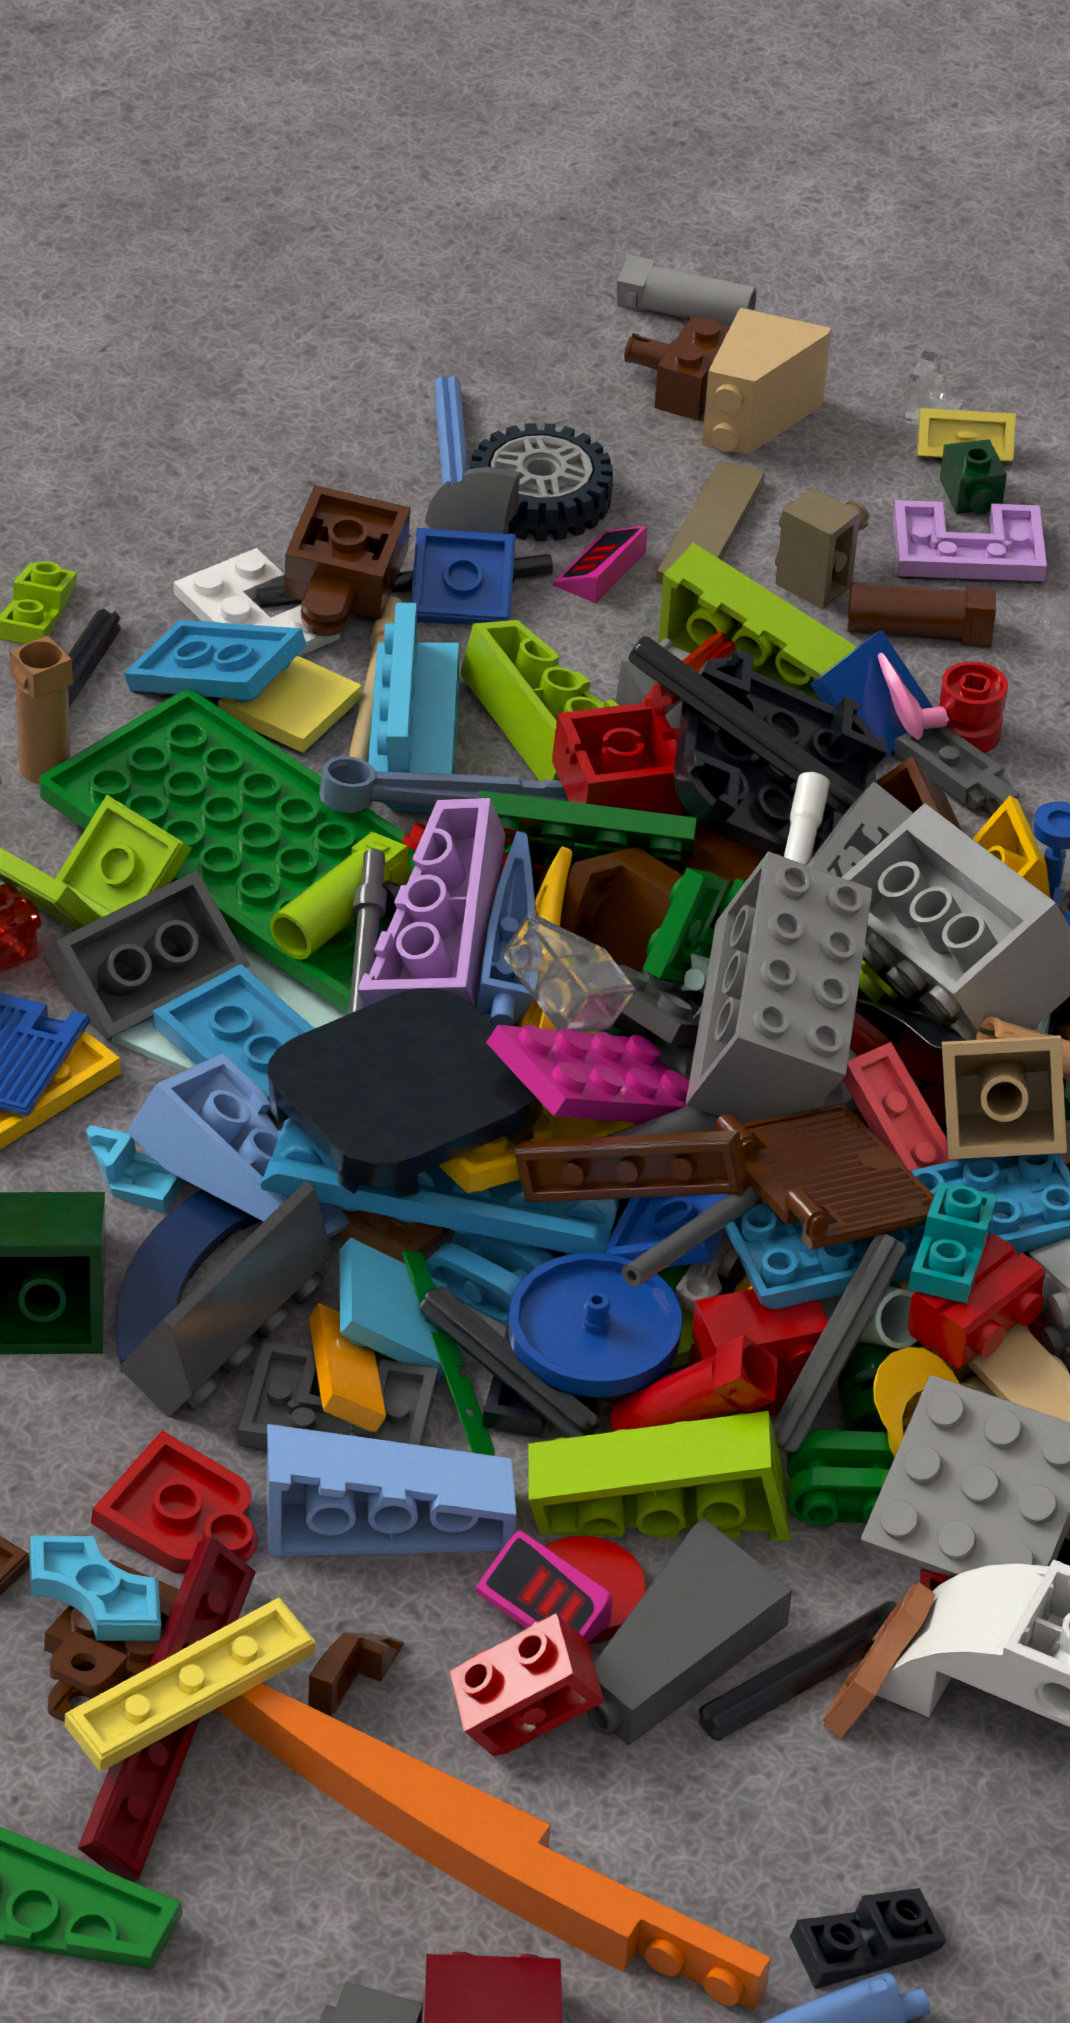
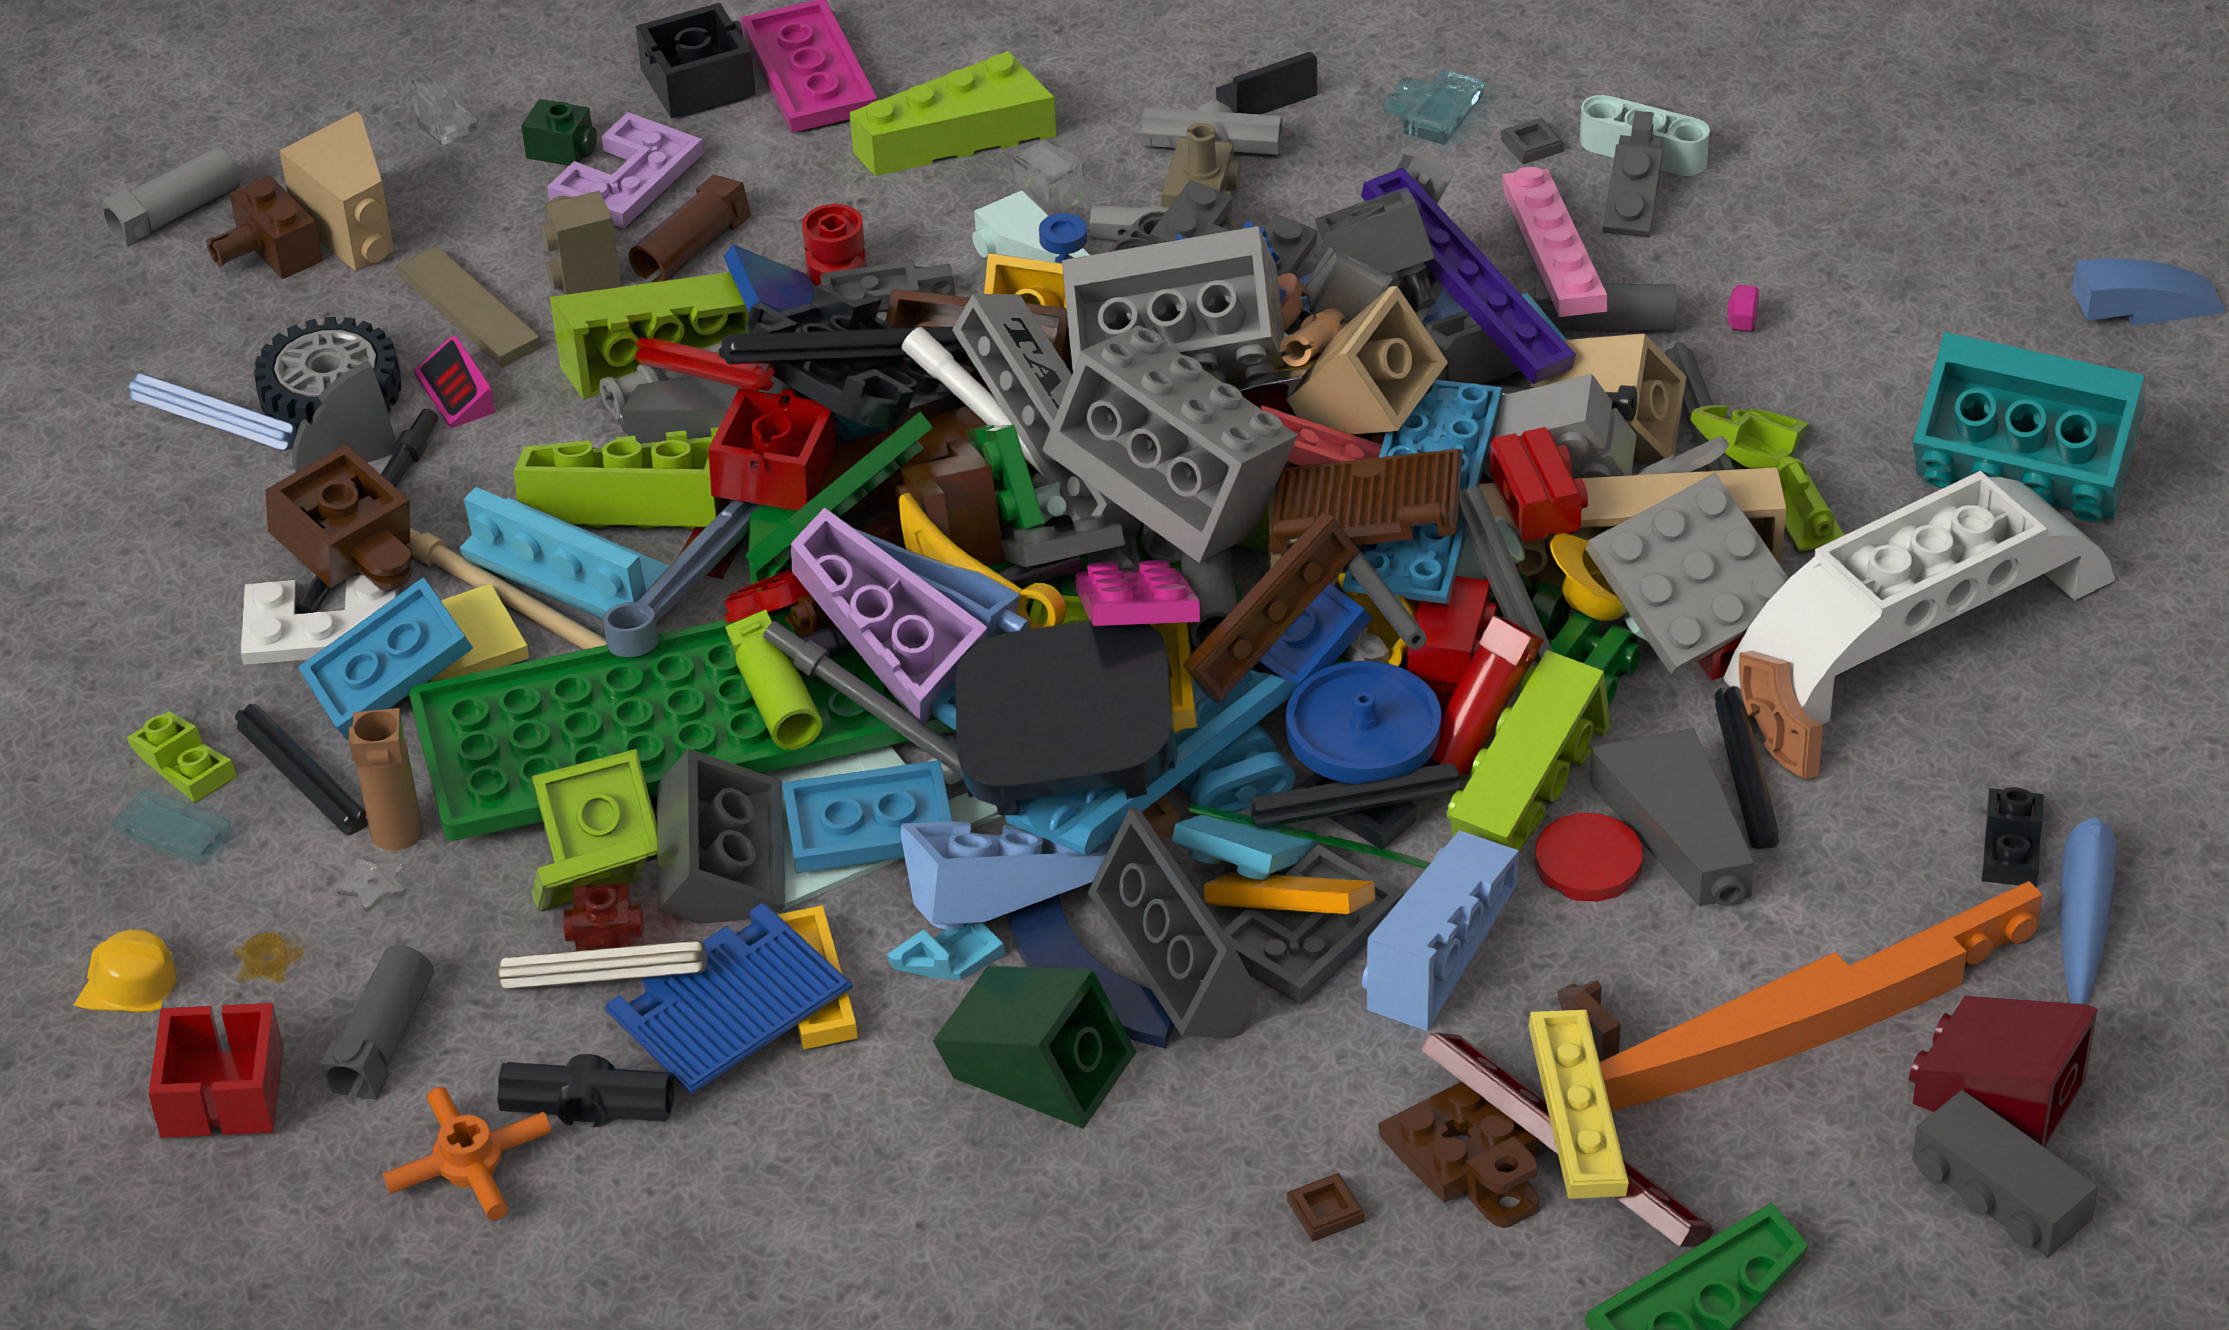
camera: 55 degrees left, 0 degrees up
(112, 1600) = (1402, 1139): medium azure tile -> none
(173, 1502) = (1350, 1060): red plate -> none
(462, 576) = (418, 465): blue tile -> none
(526, 1686) = (1689, 911): red brick -> none
(536, 1583) = (1599, 870): slope -> none
(567, 975) = (1031, 560): clear slope -> none
(907, 707) = (802, 274): bright pink bar -> none
(953, 1242) = (1493, 454): teal slope -> none
(957, 426) = (500, 116): light yellow plate -> none

